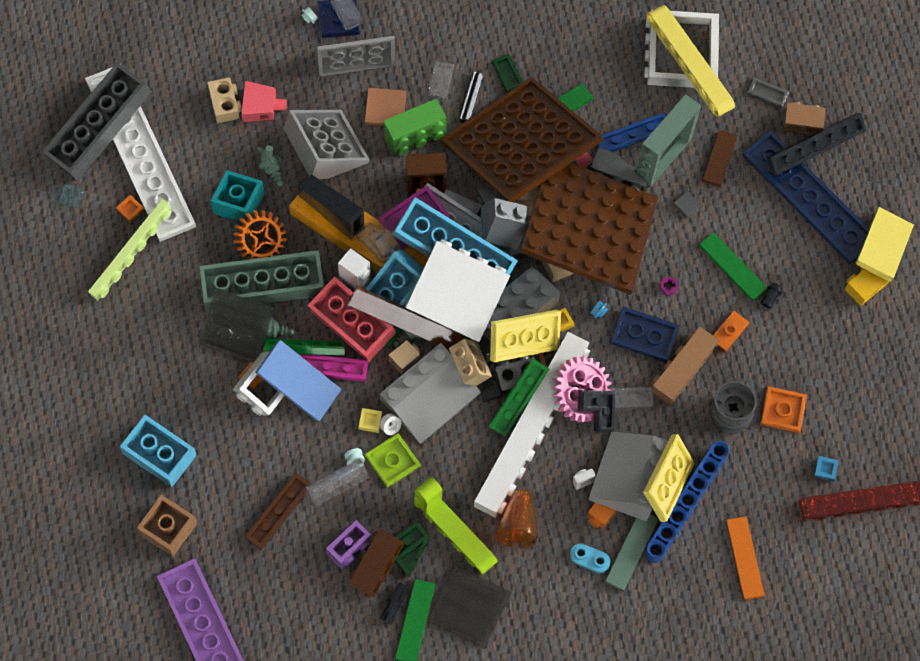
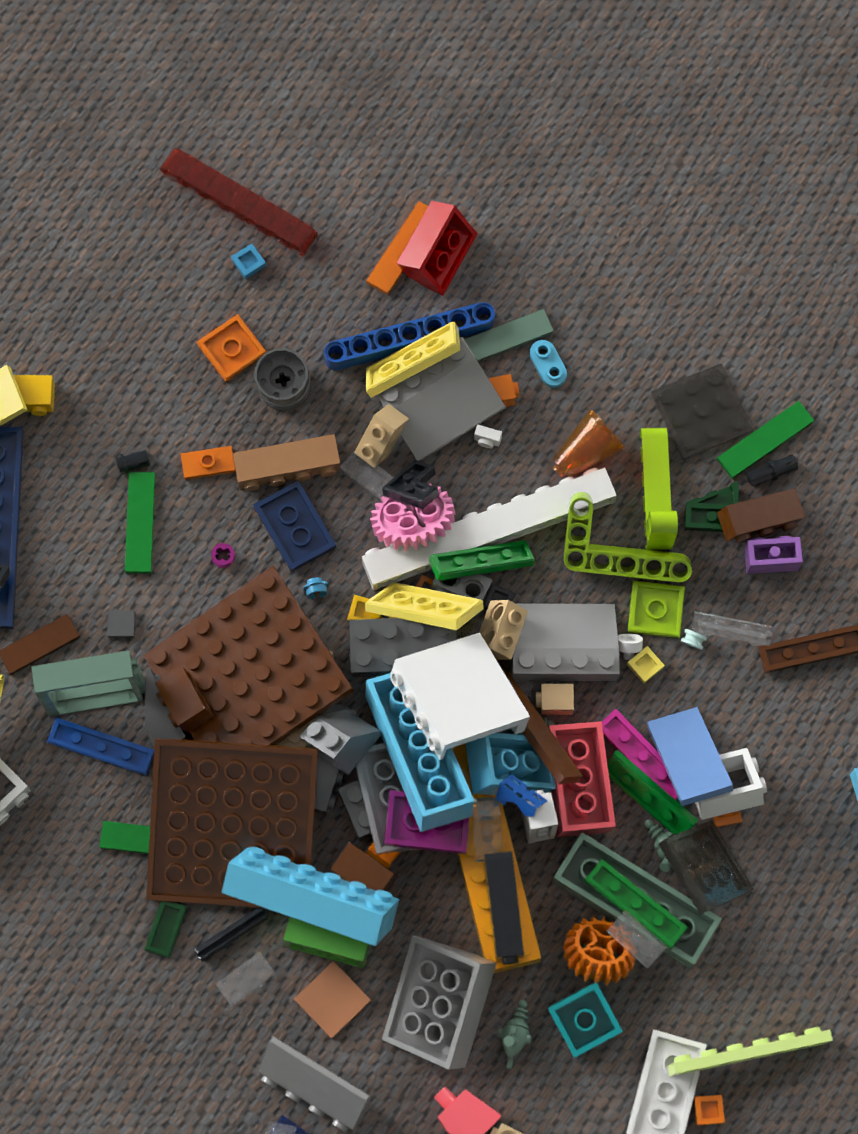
camera: 135 degrees left, 5 degrees up
(243, 250) = (636, 939): none -> clear plate
(259, 270) = (629, 897): none -> green tile
(368, 262) = (505, 794): none -> blue piece
(441, 126) = (310, 895): none -> medium azure brick
(442, 464) = (614, 553): none -> lime beam
(609, 178) = (183, 699): none -> reddish brown brick
(644, 419) = (381, 435): none -> tan brick
(723, 570) = (437, 247): none -> red slope

